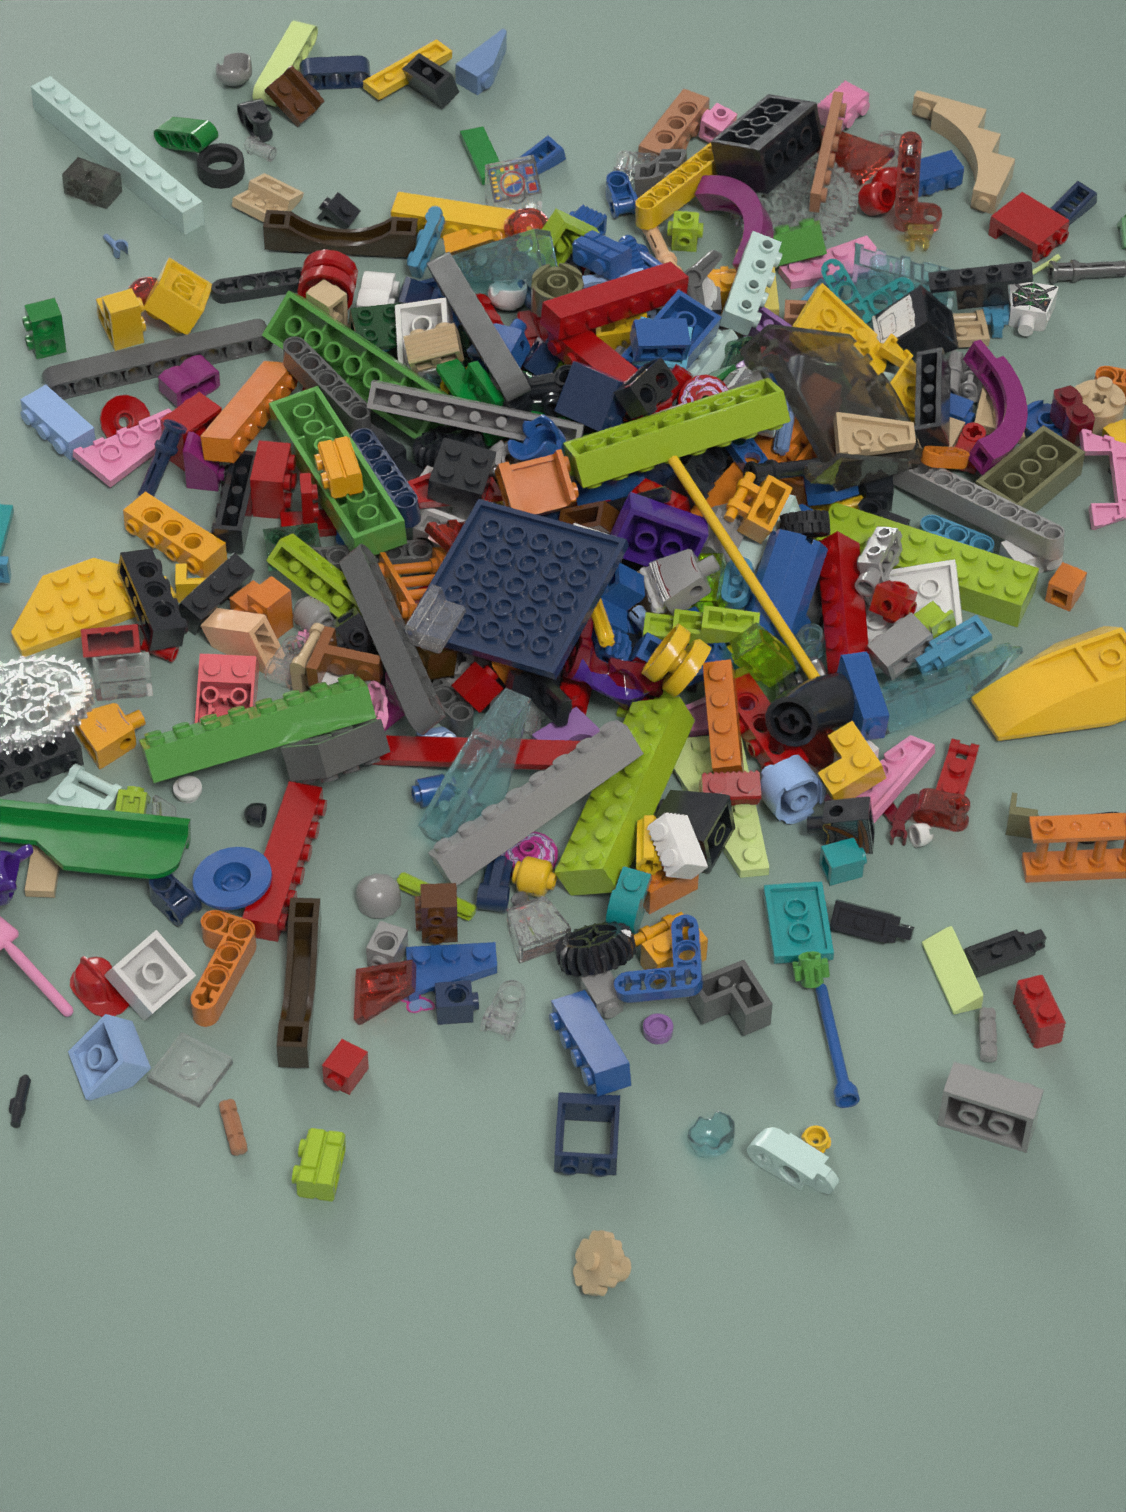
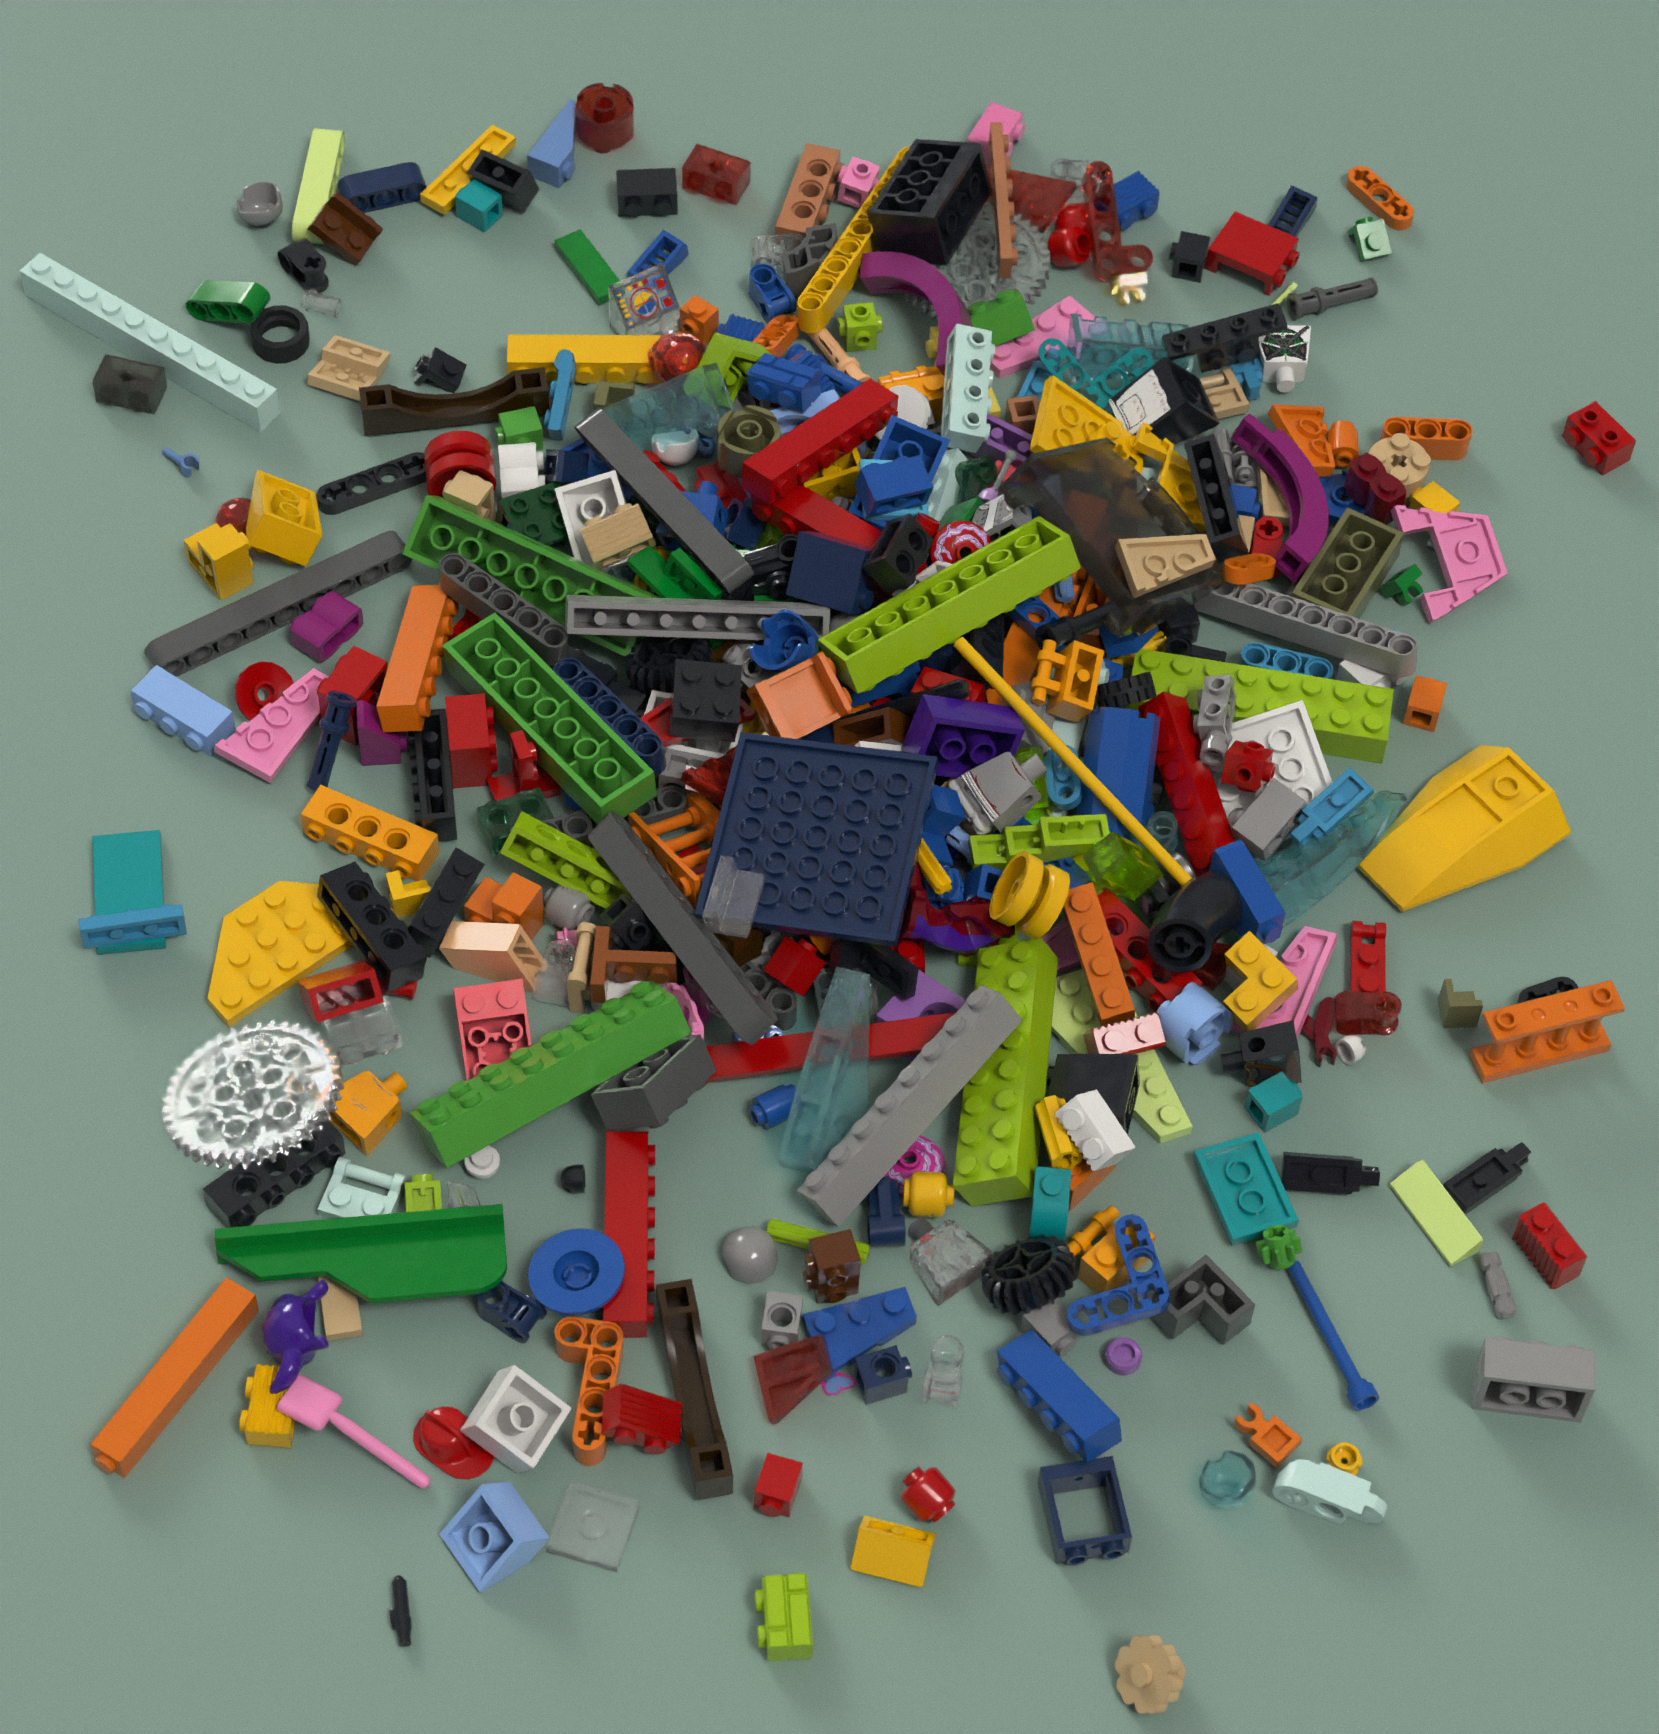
camera: 15 degrees left, 5 degrees up
(45, 328) = (132, 591): green brick -> none
(233, 1127) = (667, 1590): nougat axle -> none
(249, 994) = (641, 1418): none -> red brick
(339, 467) = (558, 718): light orange brick -> none
(387, 261) = (520, 427): none -> bright green brick
(407, 96) = (478, 205): none -> teal brick
(422, 1134) = (892, 1551): none -> yellow panel
(463, 240) = (613, 390): light orange slope -> none
(463, 1096) = (928, 1494): none -> red head
(527, 46) = (604, 117): none -> clear red brick
(544, 107) = (647, 192): none -> black brick
(555, 198) = (699, 319): none -> orange brick
(605, 102) = (716, 174): none -> clear red brick
(617, 226) = (779, 334): none -> orange beam
(699, 272) = (905, 385): dark grey piece -> none
(758, 1112) = (1271, 1438): none -> orange plate
(935, 619) = (1302, 780): lime bracket -> none
(965, 129) = (1138, 137): tan arch -> none
(975, 221) = (1189, 256): none -> black brick
(1031, 367) = (1308, 432): none -> orange wing
(1059, 376) = (1344, 442): none -> orange brick
(1076, 493) = (1401, 583): none -> green tile

